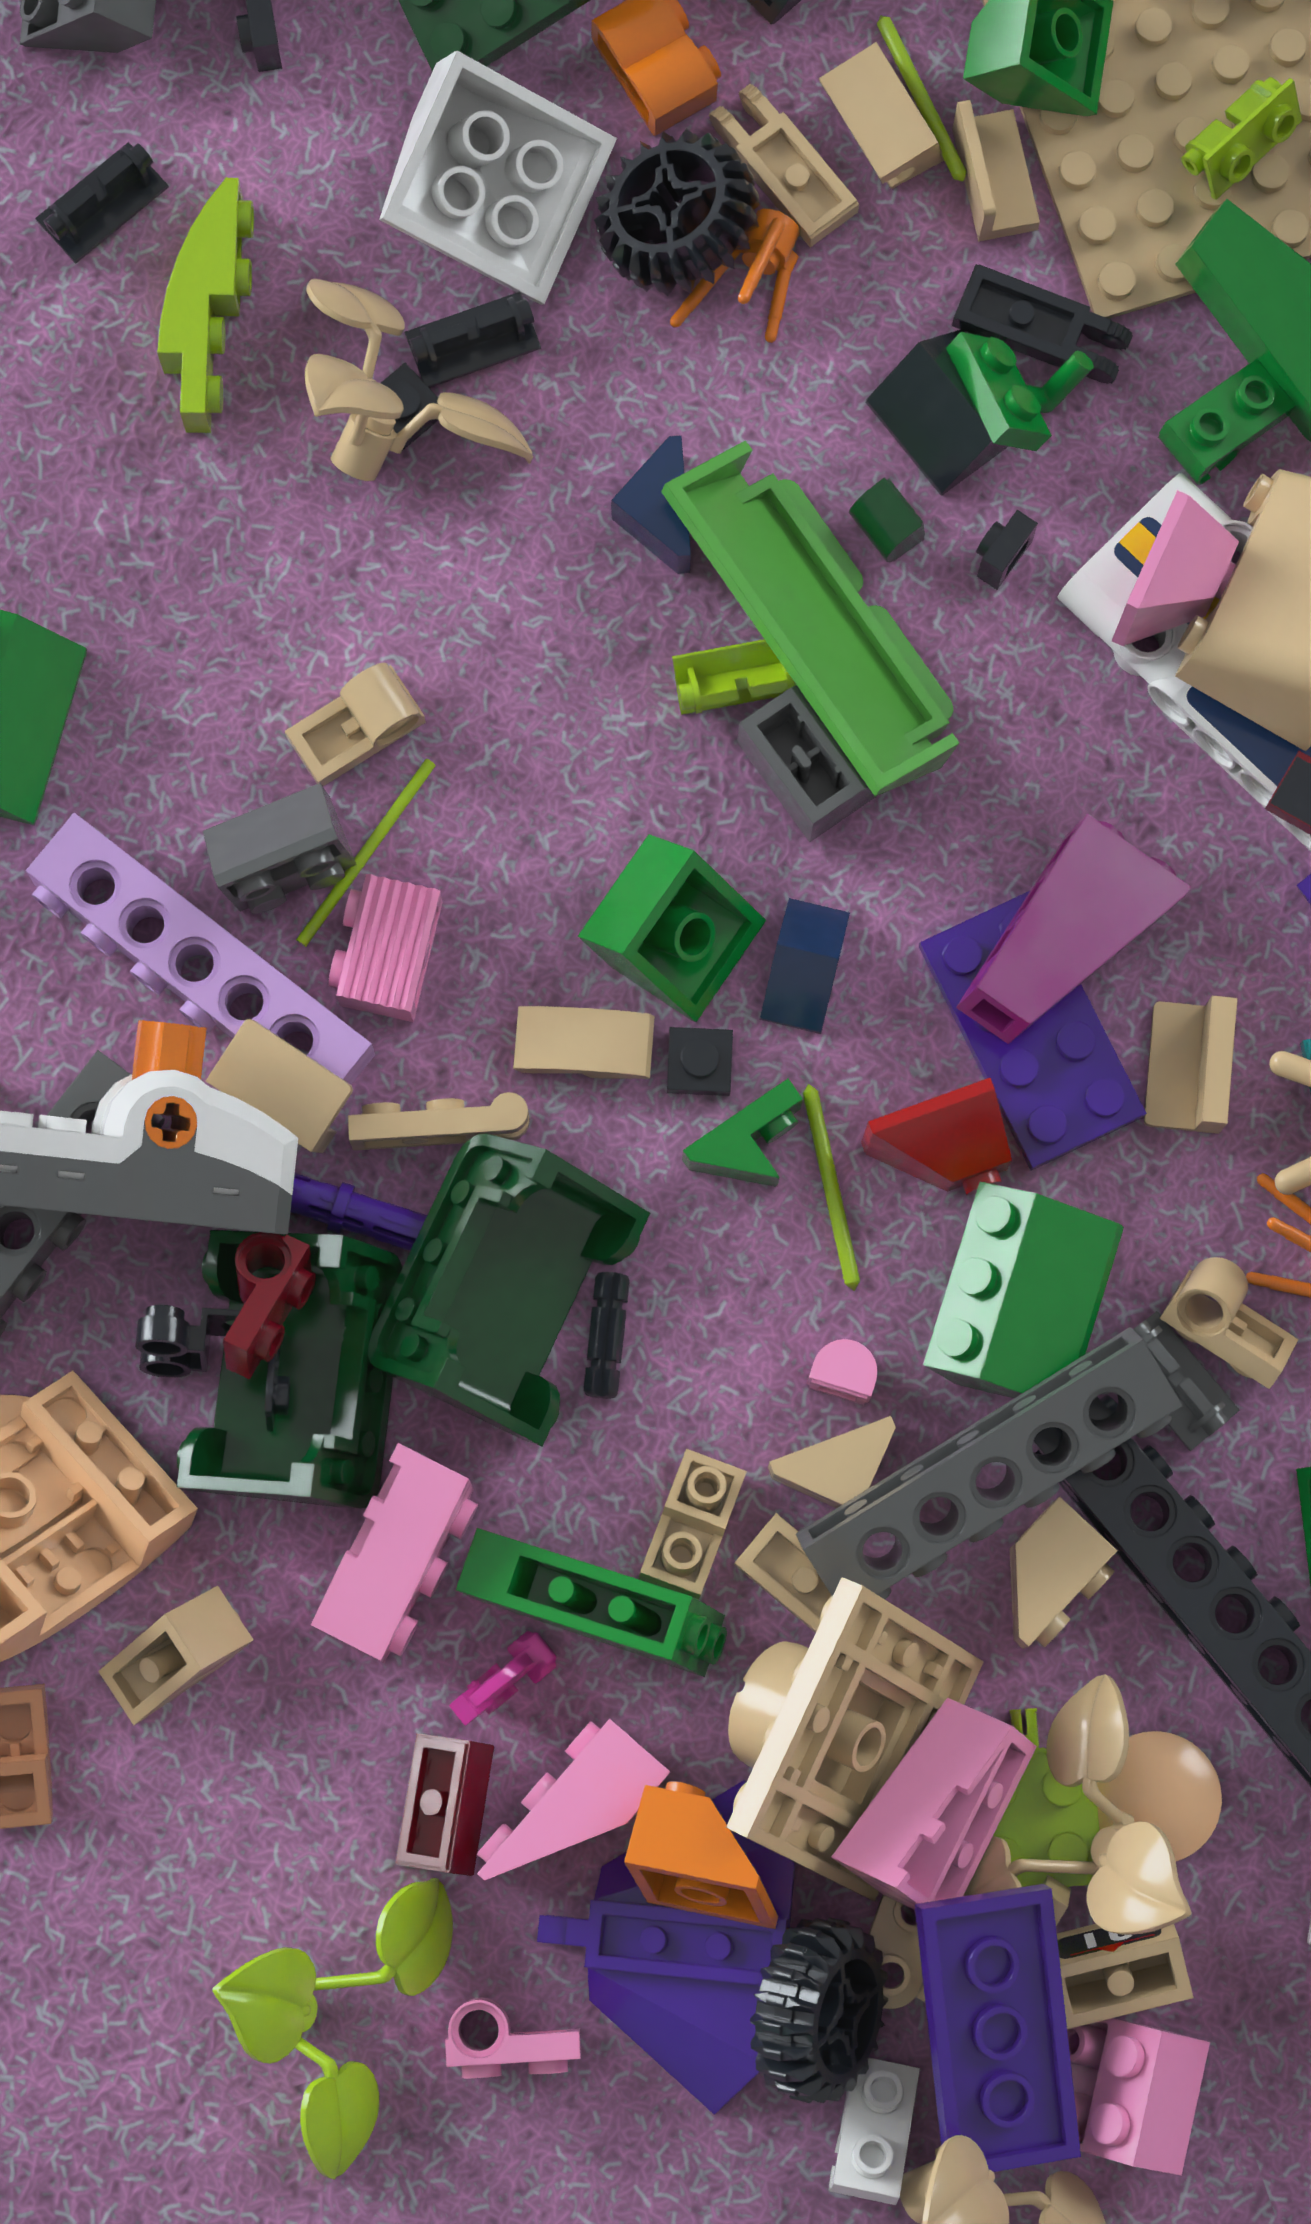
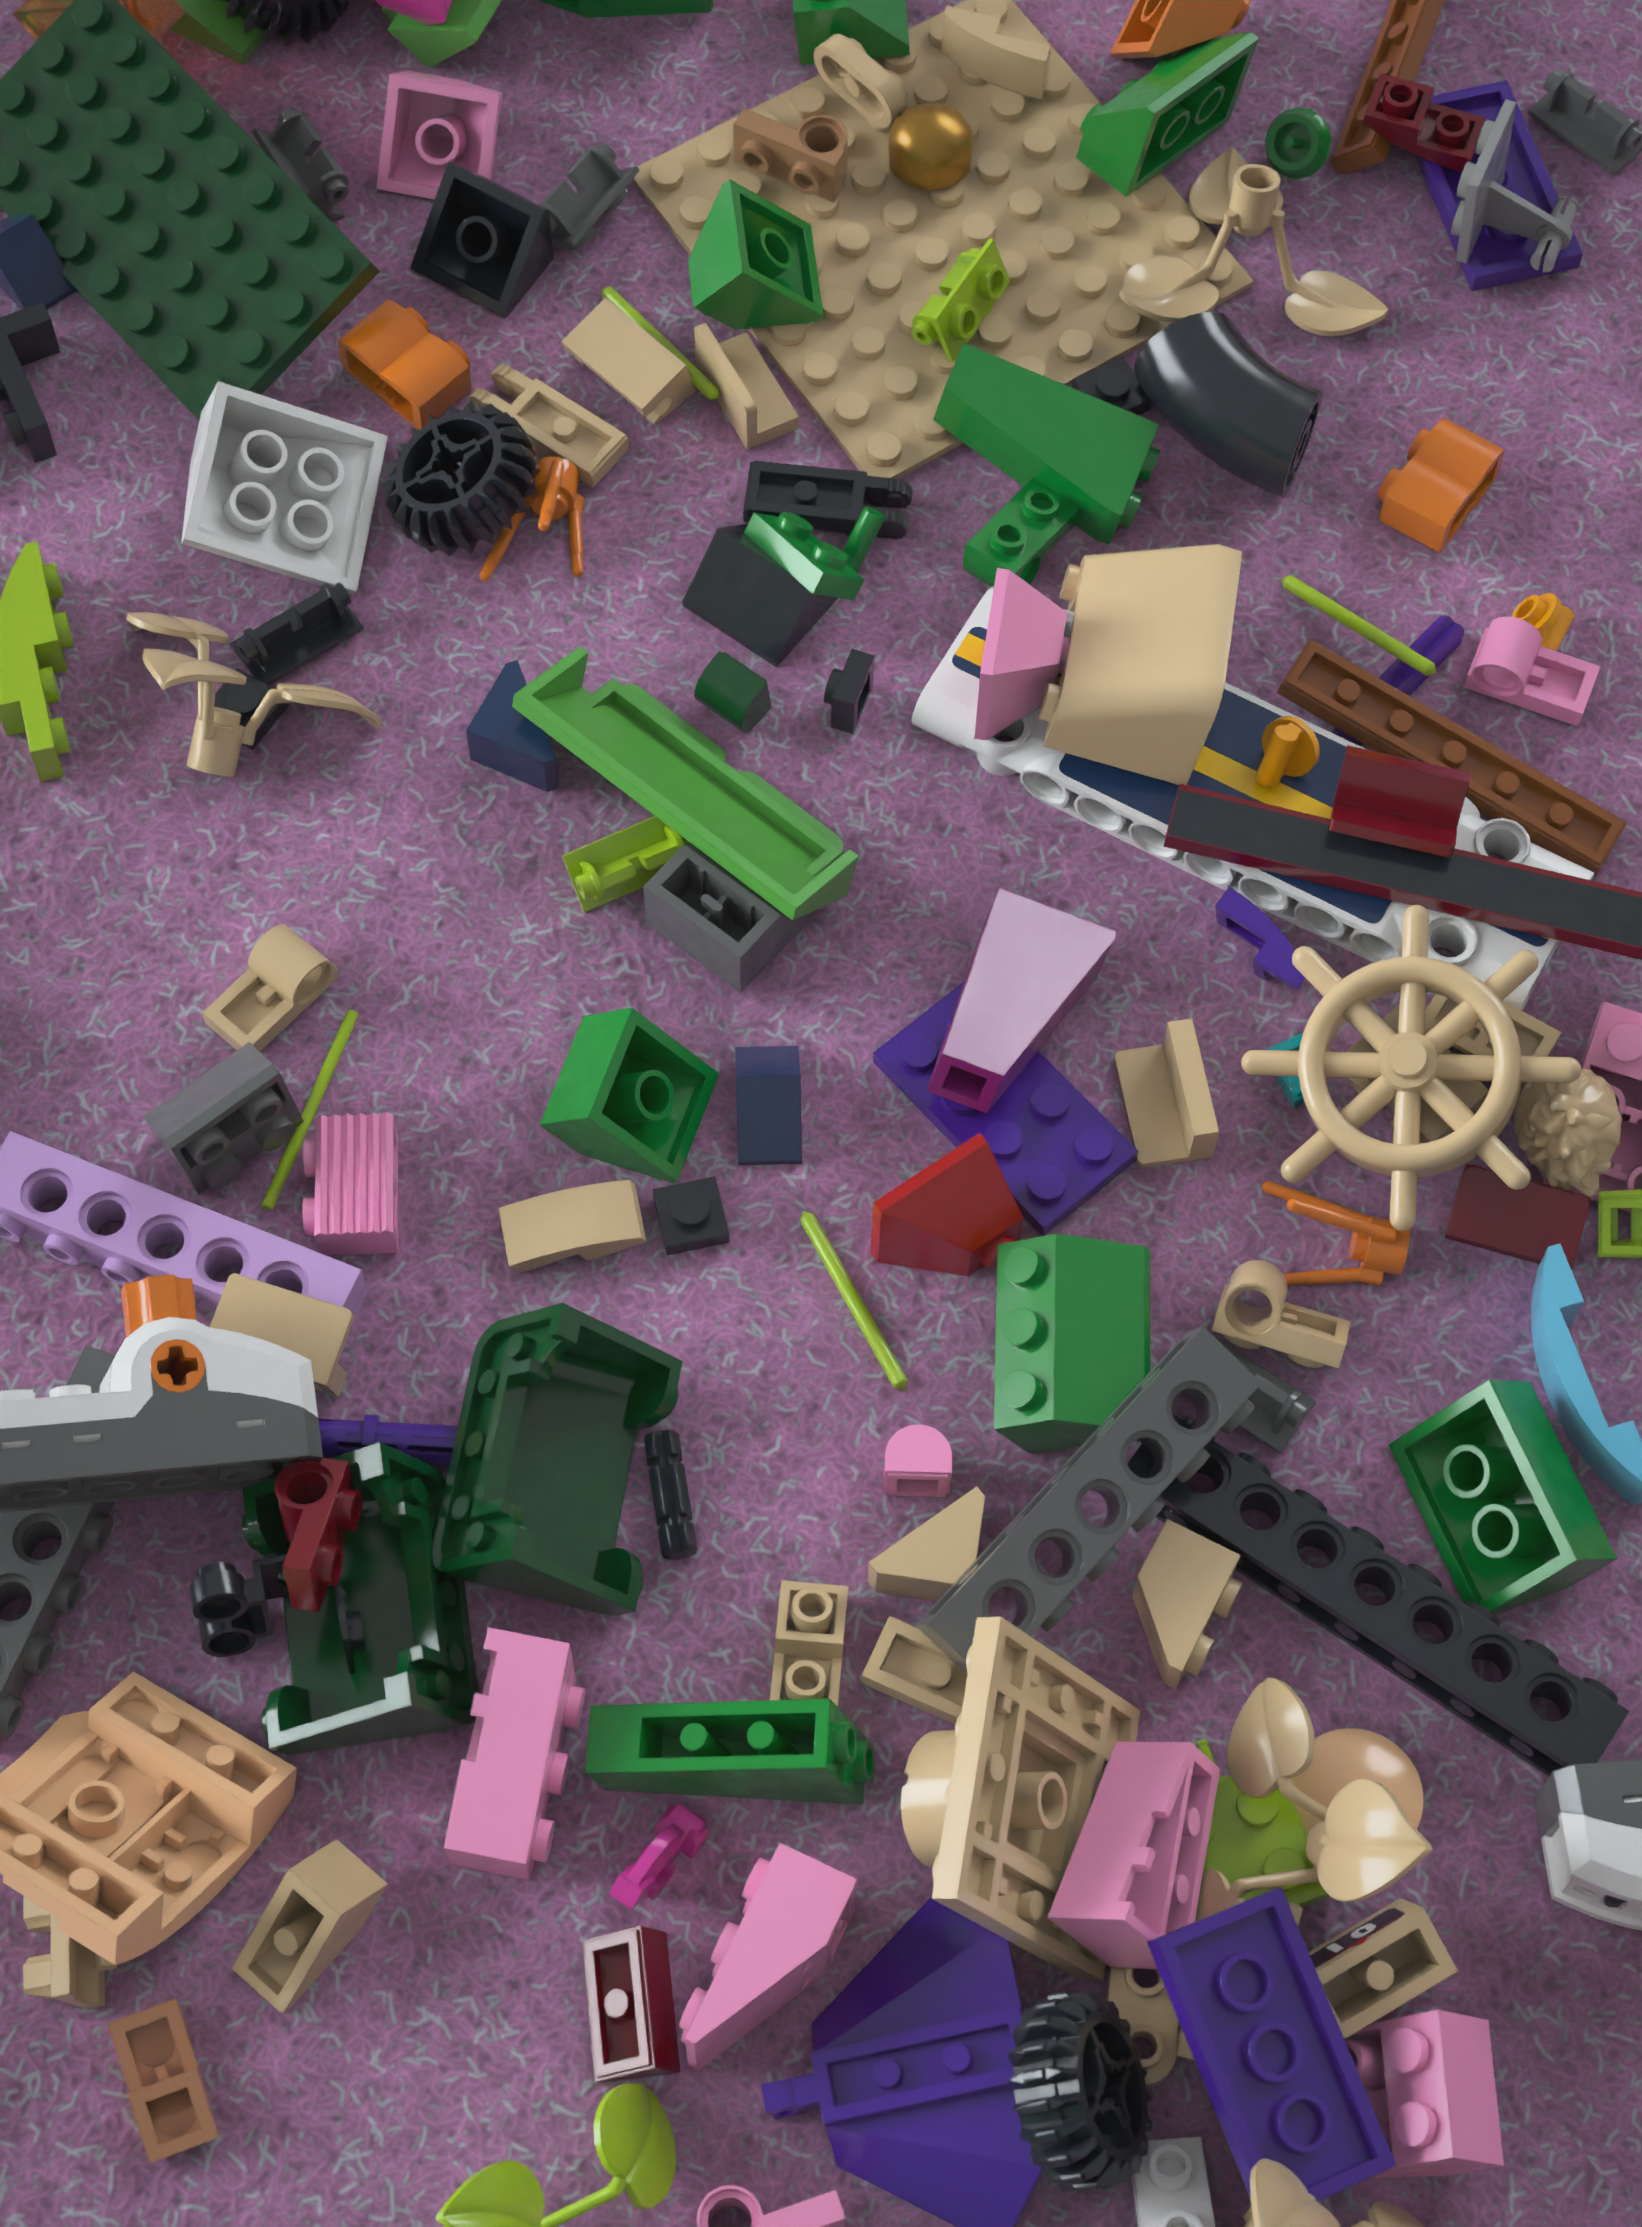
camera: 15 degrees left, 15 degrees down
(440, 1124) = (445, 1337): tan plate -> none
(691, 1860) = (911, 1962): orange slope -> none
(731, 1146) = (747, 1281): green slope -> none

